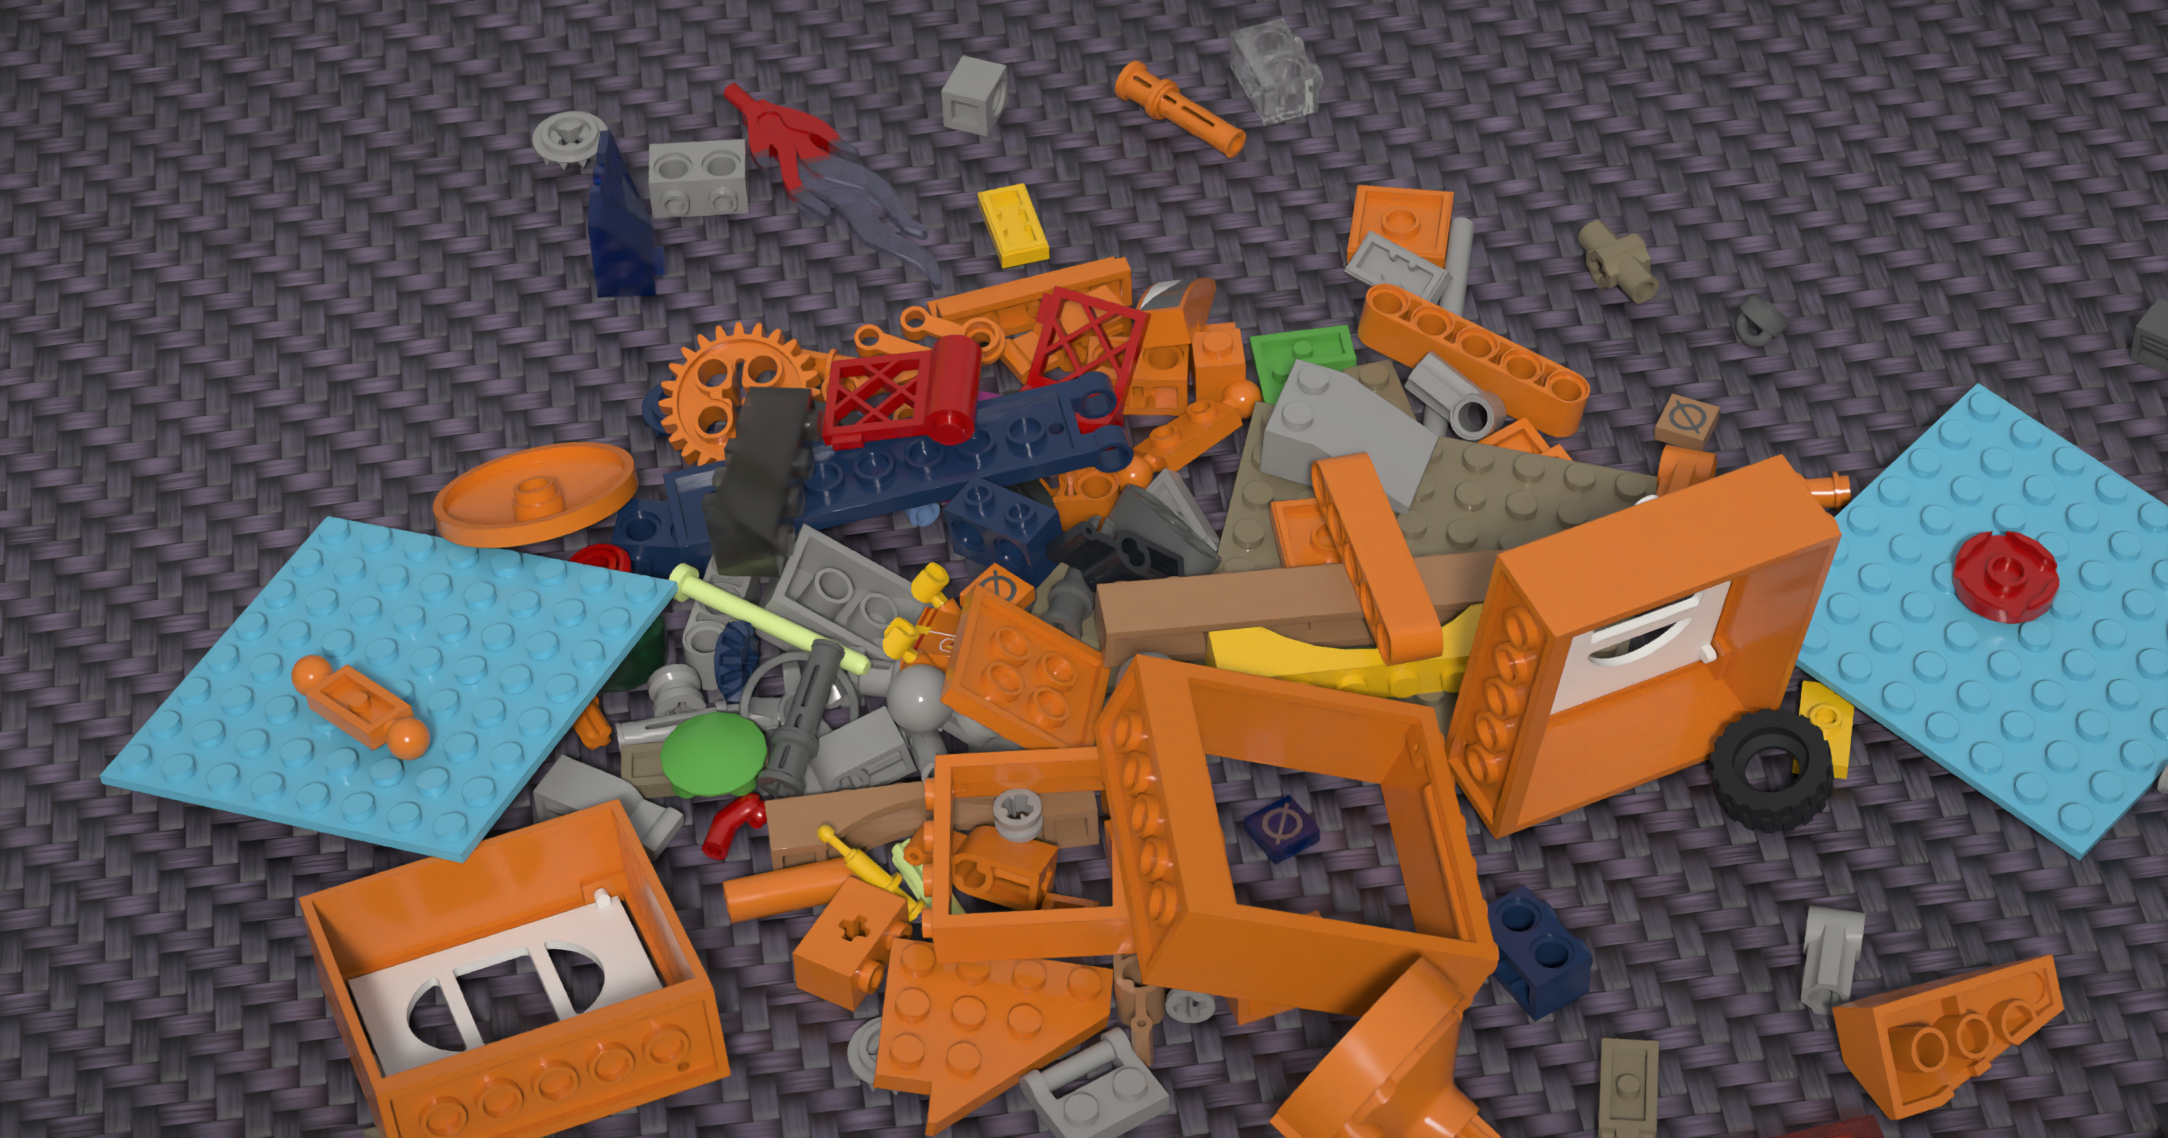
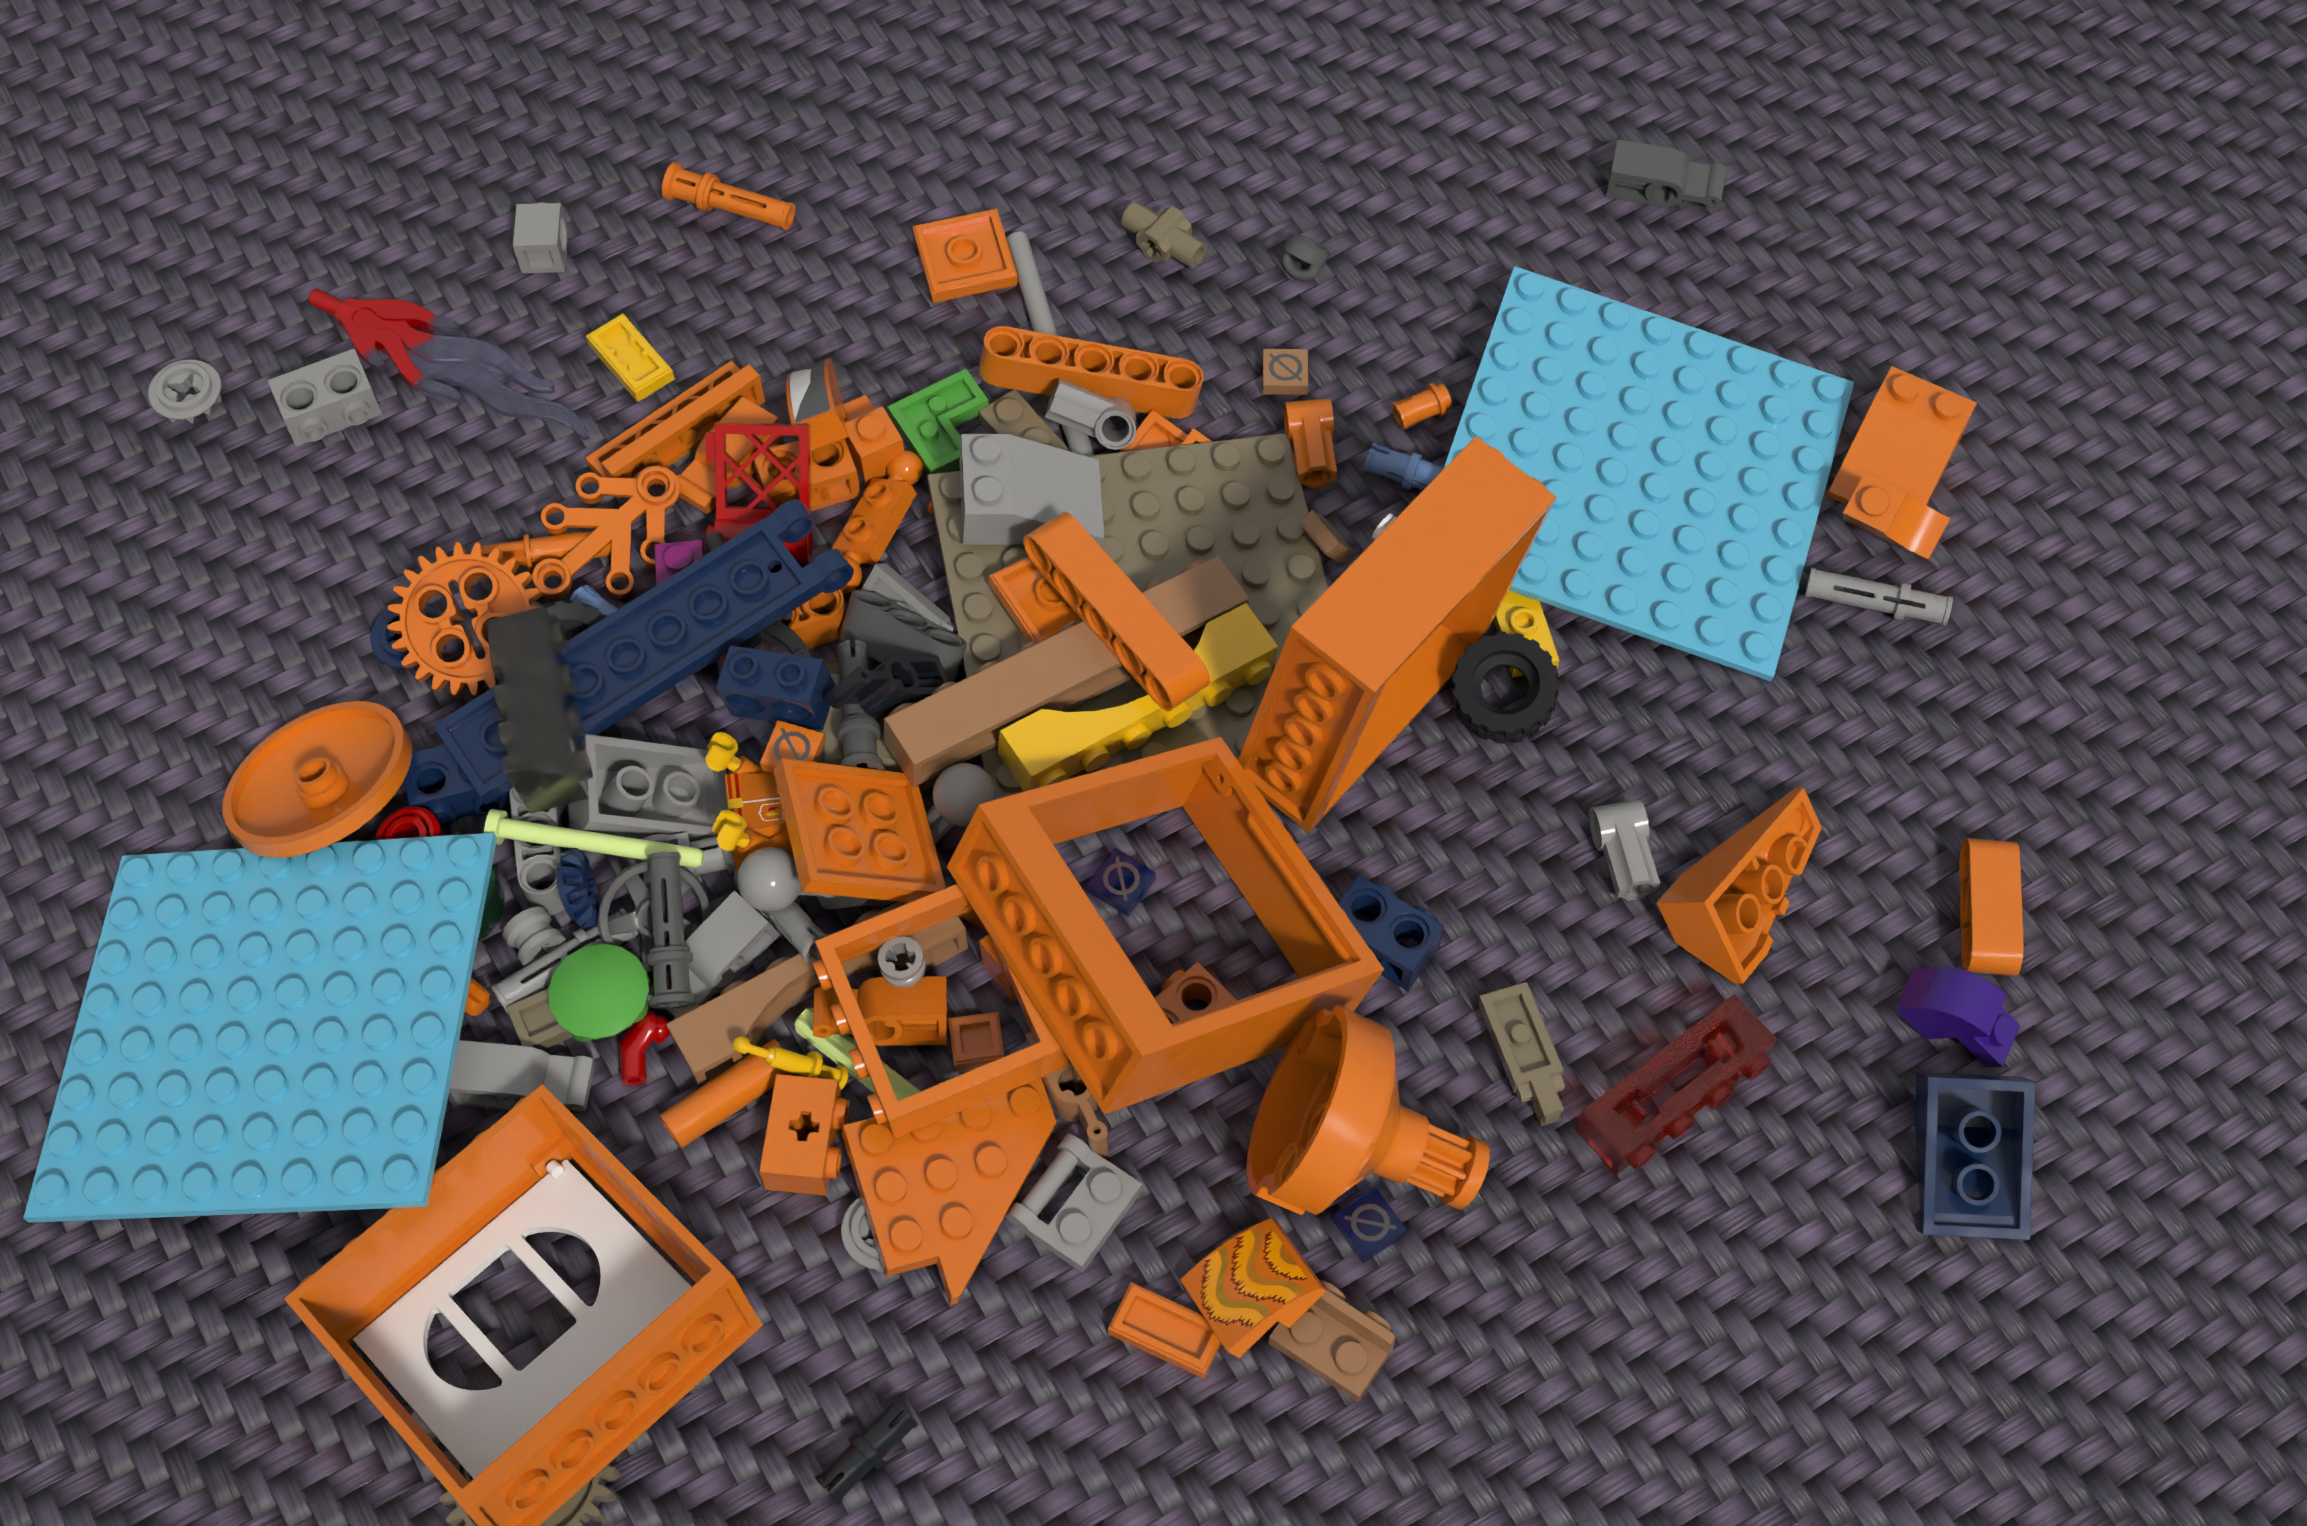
camera: 25 degrees left, 15 degrees up
(360, 707) = (256, 1074): orange plate -> none
(620, 229) = (276, 473): clear blue wedge -> none
(942, 404) = (665, 571): red piece -> none
(1275, 71) = (794, 135): clear brick -> none
(1388, 263) = (985, 302): light grey plate -> none
(2005, 577) = (1616, 444): red tile -> none

